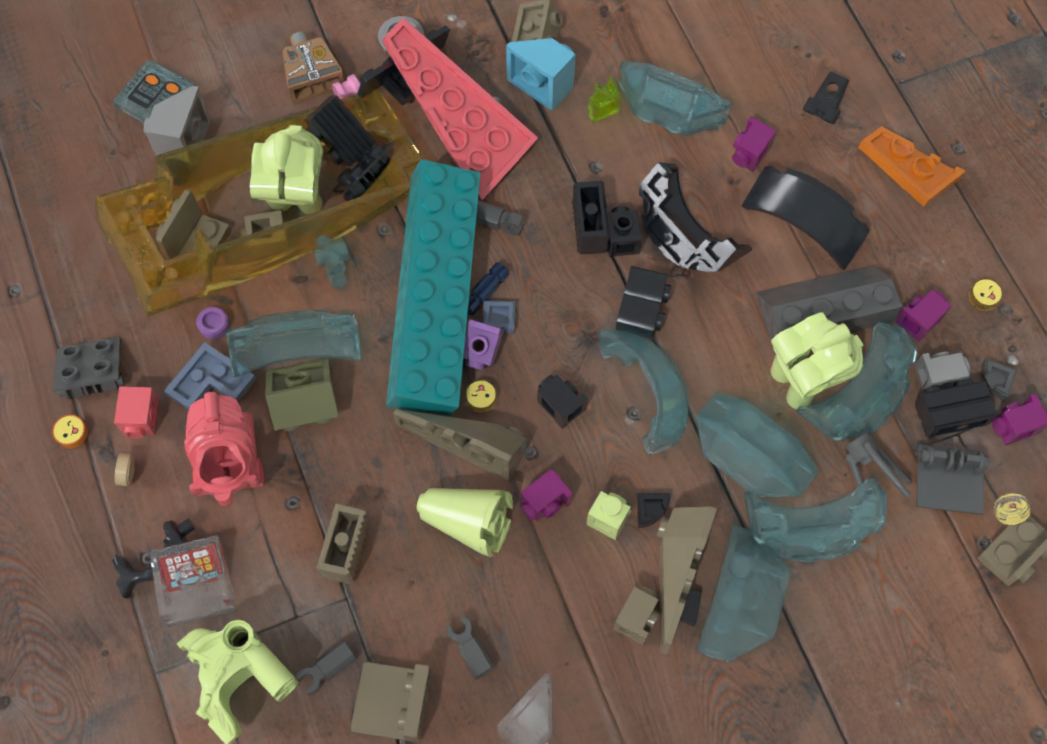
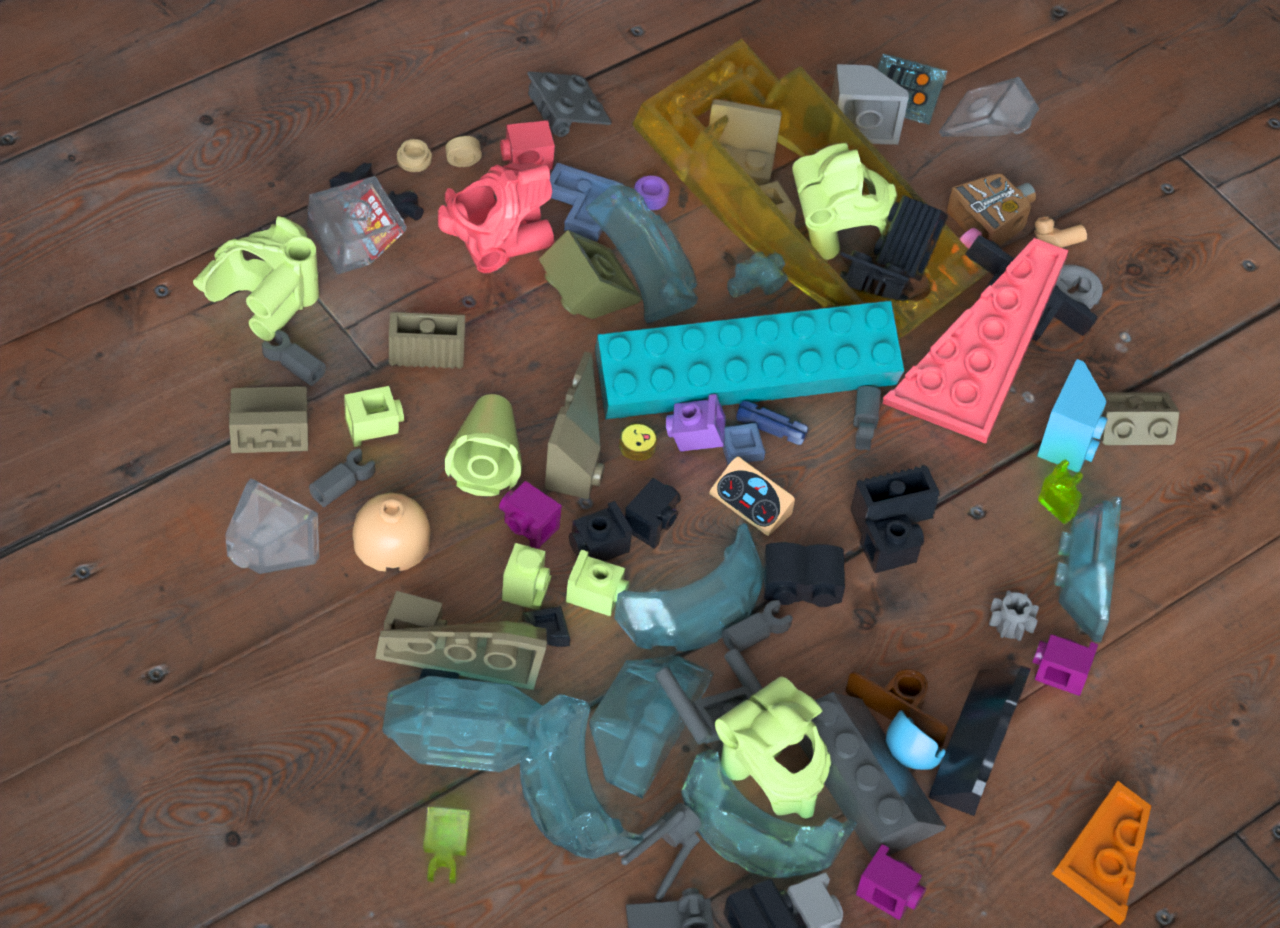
camera: 70 degrees right, 15 degrees down
(70, 431) = (494, 104): light yellow tile -> none
(114, 515) = (414, 156): none -> tan plate
(204, 39) = (992, 111): none -> clear slope
(346, 33) = (1062, 238): none -> light nougat arm
(407, 594) = (372, 414): none -> yellowish green brick
(537, 617) = (391, 532): none -> light nougat cylinder
(556, 321) = (753, 496): none -> slope
(573, 433) = (602, 534): none -> black brick
(622, 470) = (595, 584): none -> yellowish green brick
(676, 230) = (925, 597): black windscreen -> none
(683, 351) = (756, 628): none -> dark grey bar
(705, 166) = (1013, 615): none -> light grey gear
(766, 387) = (703, 713): none -> dark grey plate
(768, 270) = (892, 700): none -> reddish brown piece
(812, 266) = (912, 745): none -> medium azure hair
(825, 104) = (1173, 739): black plate -> none
(845, 630) = (446, 836): none -> clear neon green plate

